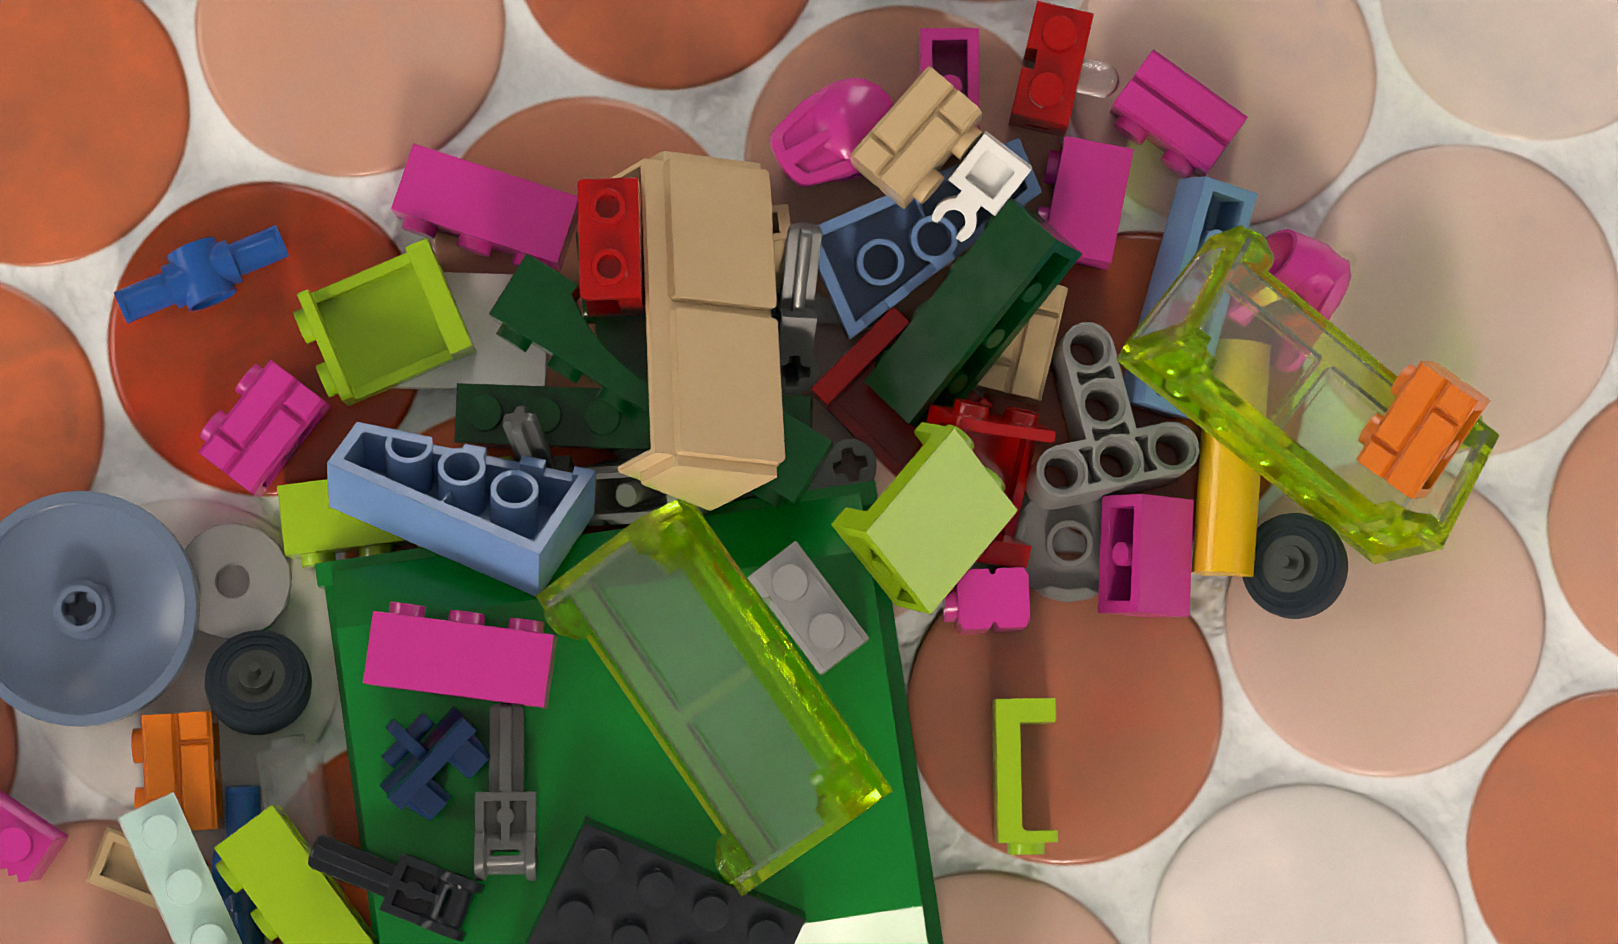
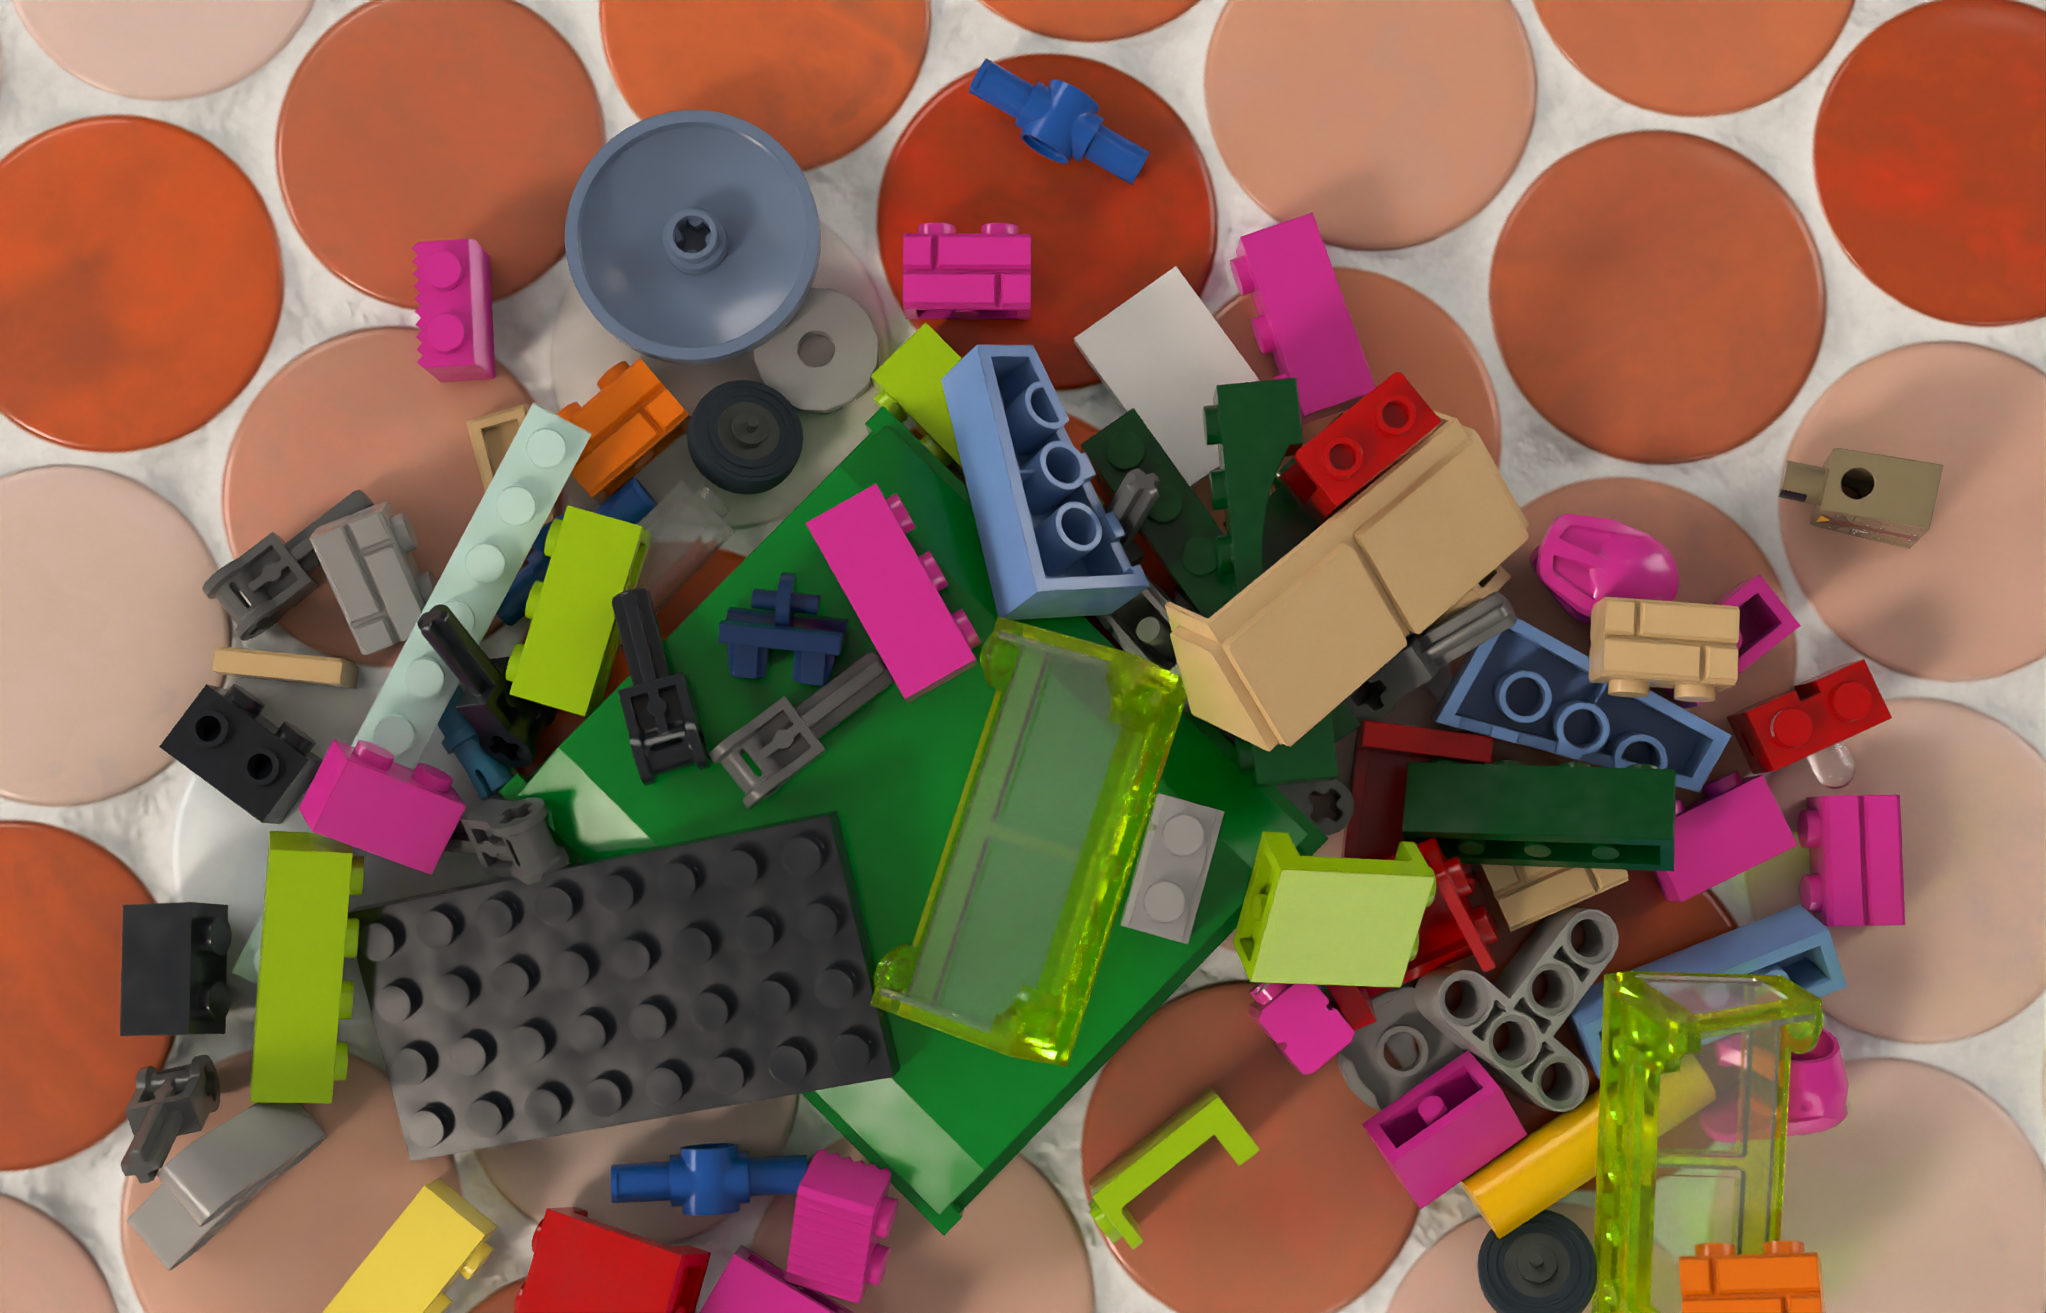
camera: 55 degrees right, 0 degrees up
(384, 325) = (1135, 309): lime panel -> none
(985, 179) = (1675, 734): white plate -> none

